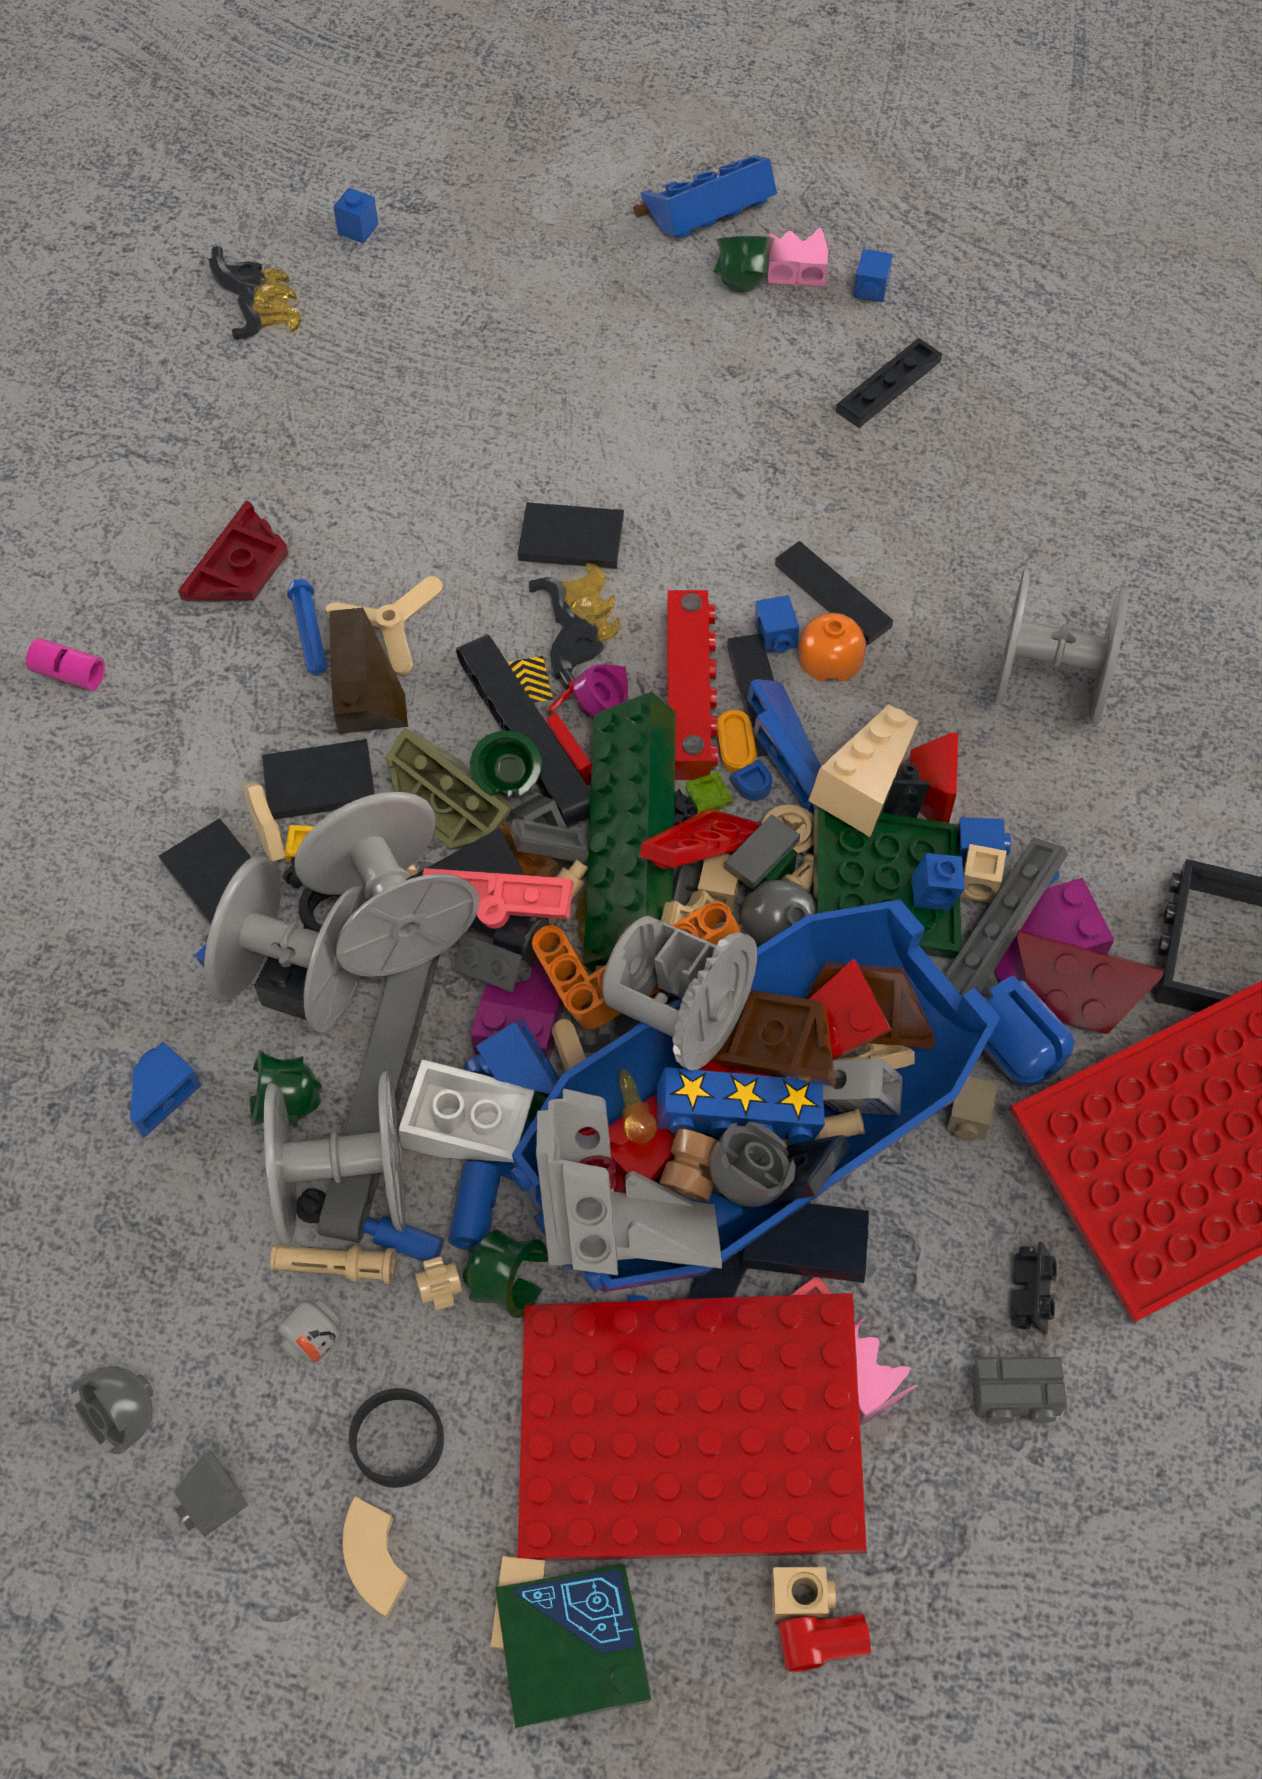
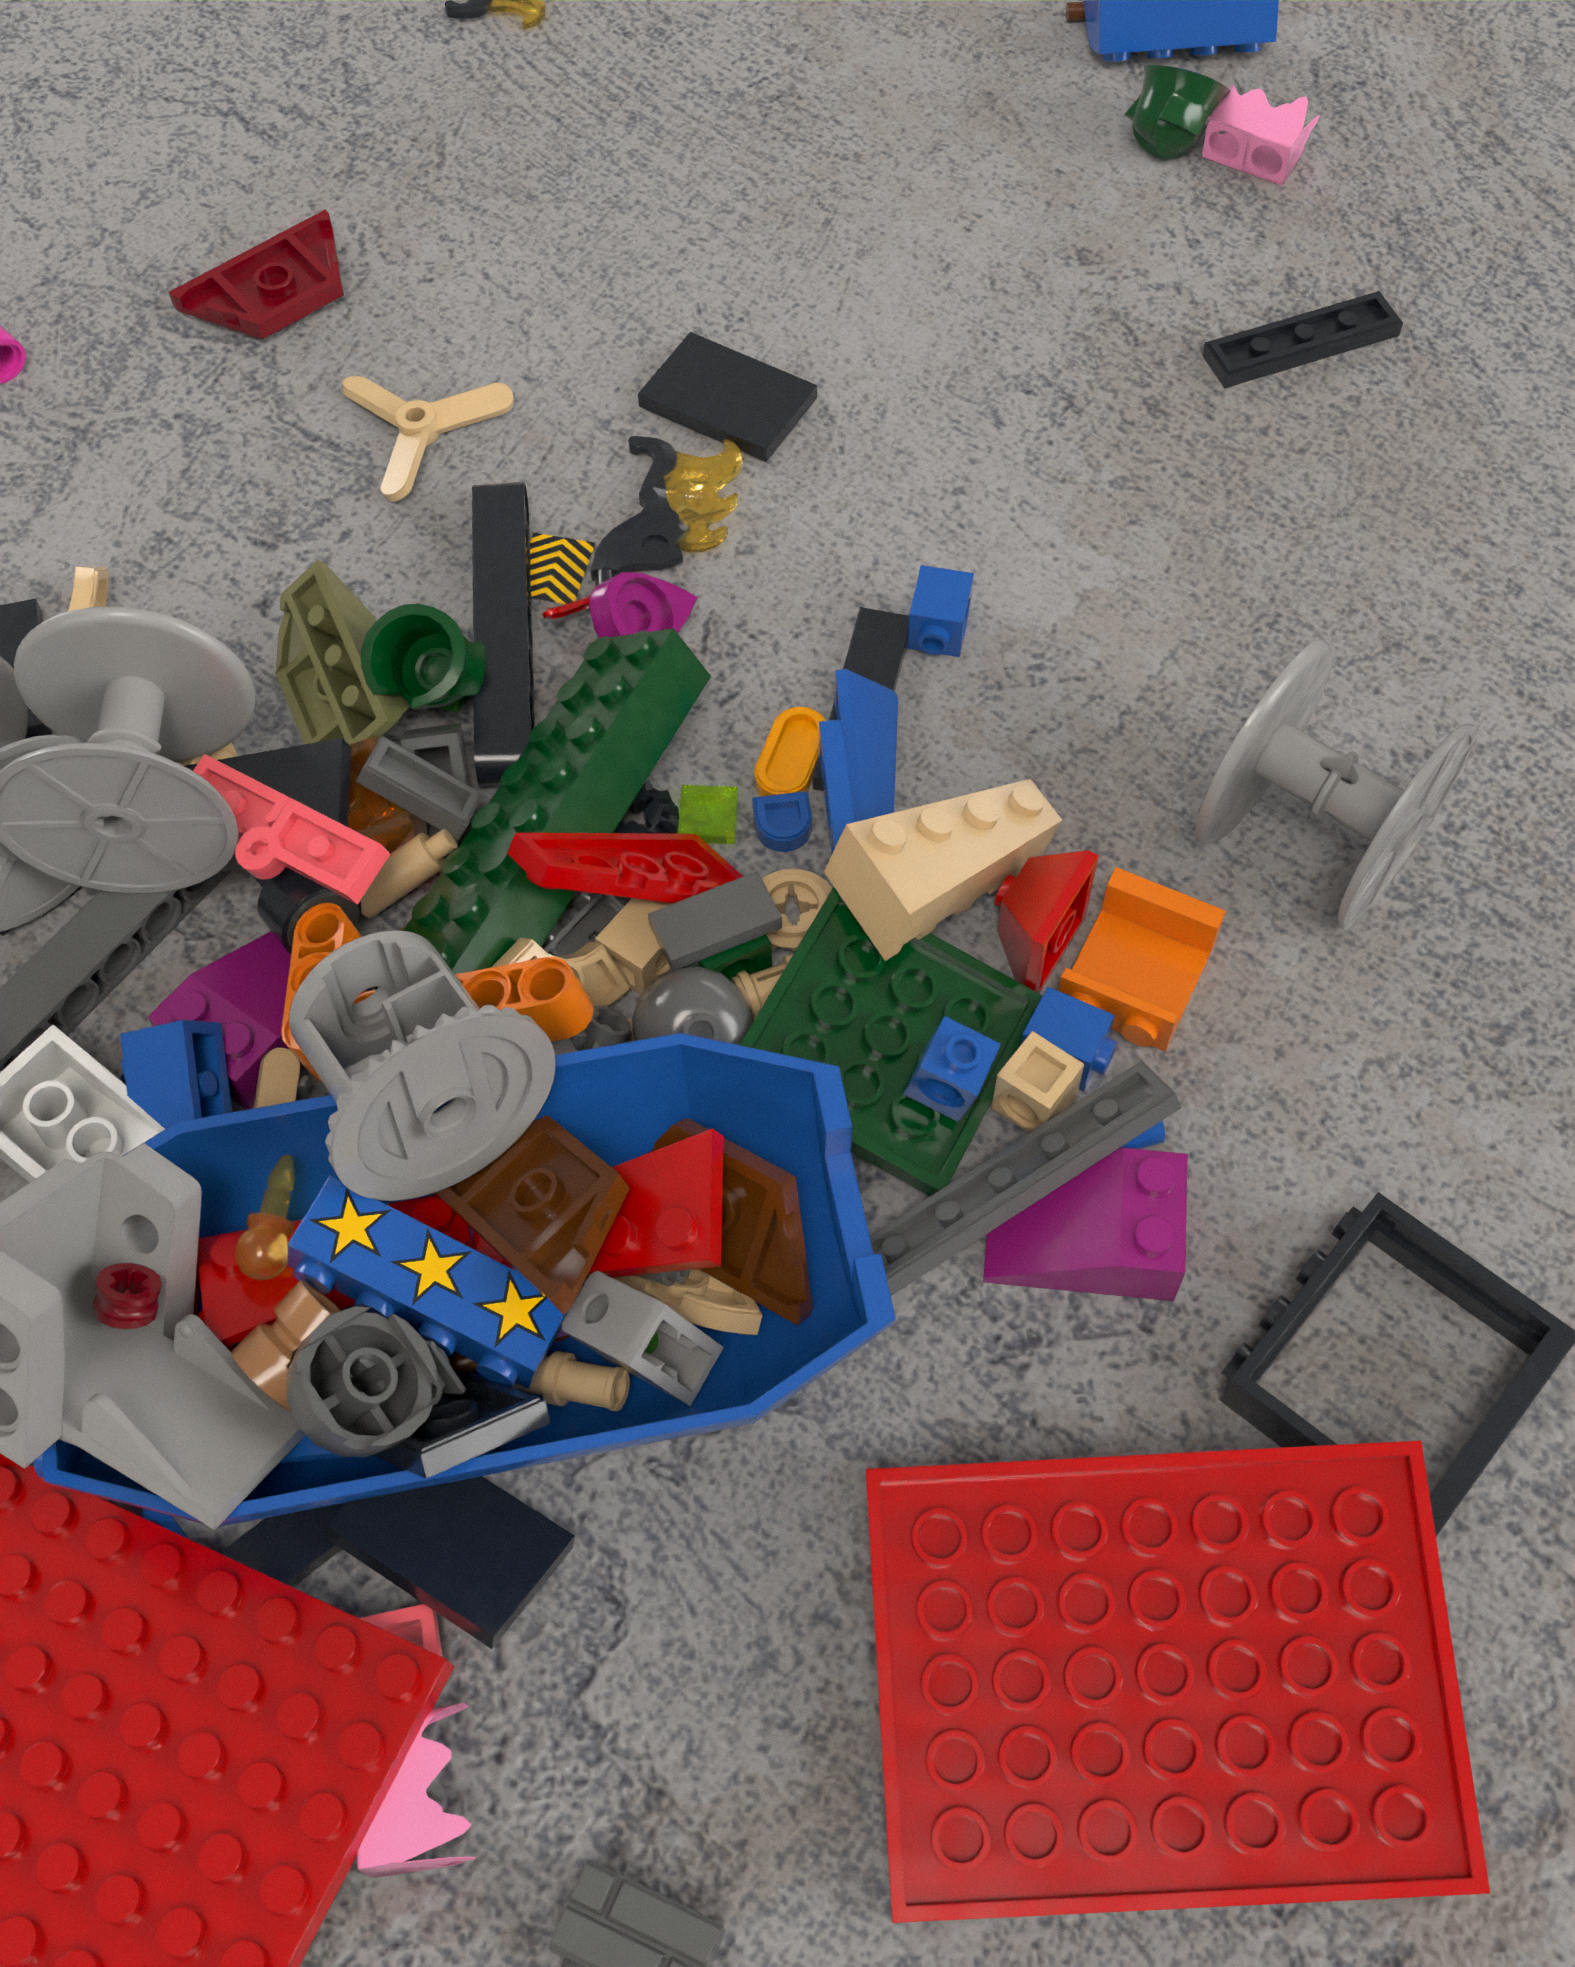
camera: 25 degrees right, 0 degrees up
(301, 595) = (322, 351): blue axle -> none
(317, 778) = (206, 588): black tile -> none
(362, 679) = (326, 482): dark brown wedge -> none
(491, 963) = (242, 931): dark grey hinge -> none
(571, 747) = (544, 667): red tile -> none
(689, 681) = (766, 649): red piece -> none
(831, 647) = (1005, 672): orange cylinder -> none
(832, 590) = (1055, 600): black tile -> none
(873, 275) = (1356, 187): blue brick -> none
(906, 793) = (977, 917): black hinge -> none
(973, 1109) = (821, 1444): dark tan brick -> none
(995, 780) = (1144, 957): none -> orange panel
(1029, 1037) = (957, 1359): blue cylinder -> none
(1036, 1303) = (745, 1815): black hinge -> none
(1083, 983) = (1100, 1319): dark red wing -> none

